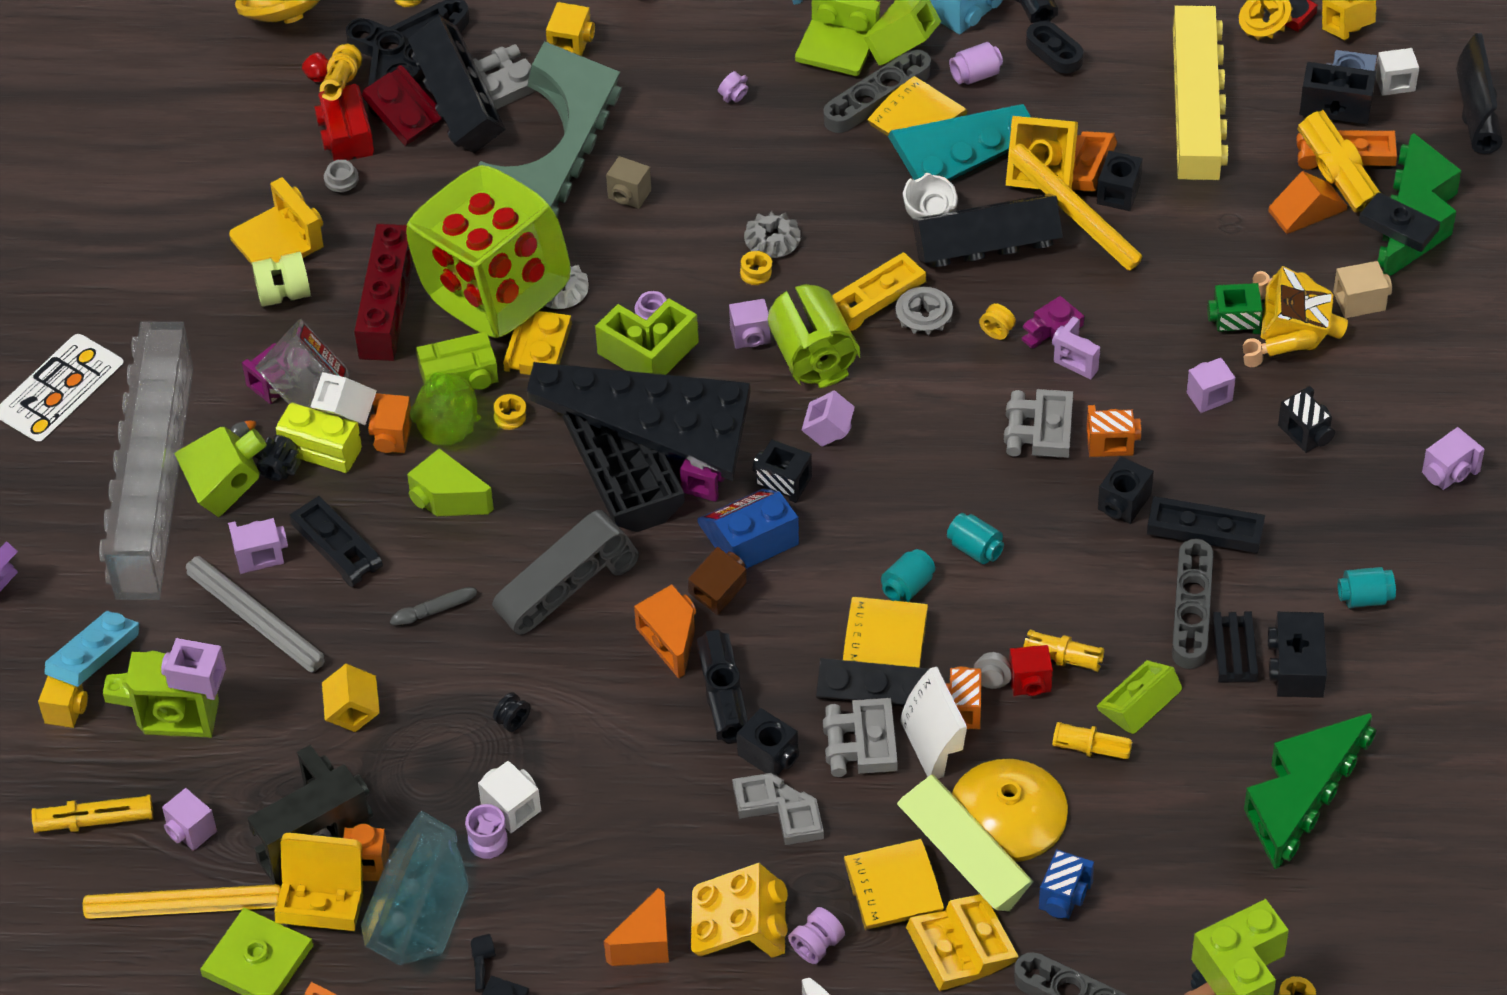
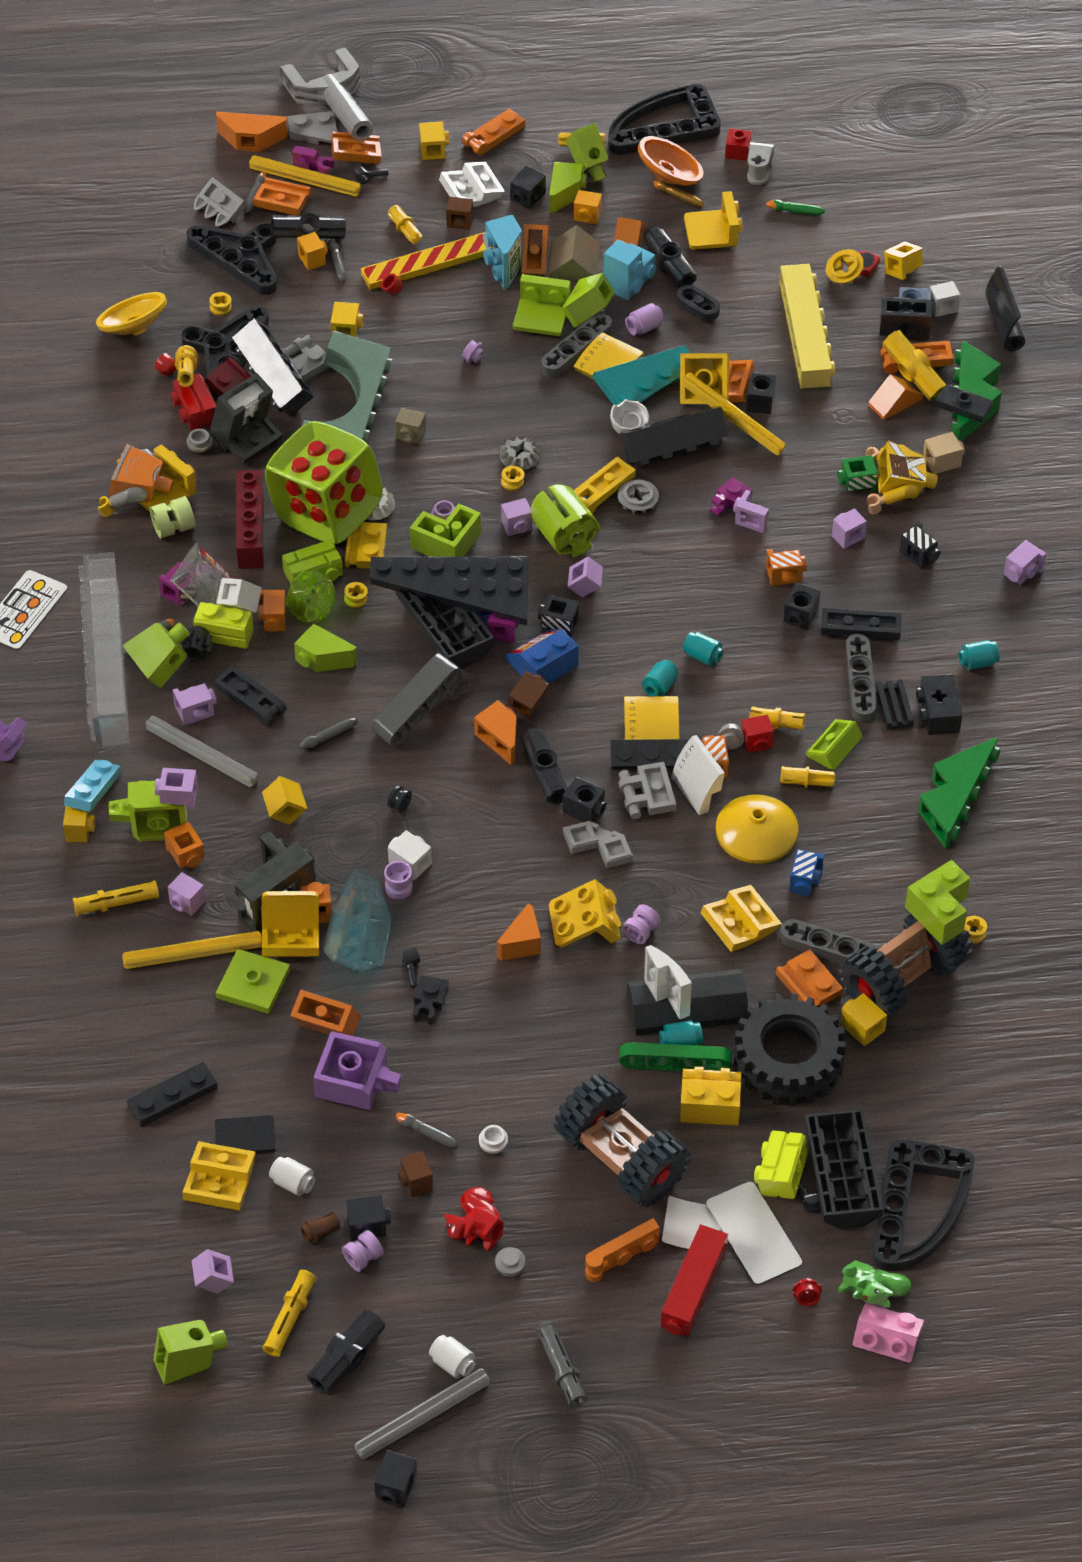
camera: 10 degrees left, 0 degrees up
(204, 755) = (187, 850): none -> orange brick
(239, 222) = (135, 480): none -> orange torso
(400, 154) = (242, 420): none -> pearl dark grey brick
(893, 883) = (687, 885): yellow slope -> none
(966, 843) = (733, 852): yellowish green slope -> none
(997, 321) = (691, 499): yellow bush -> none
(1051, 423) = (741, 562): light grey plate -> none

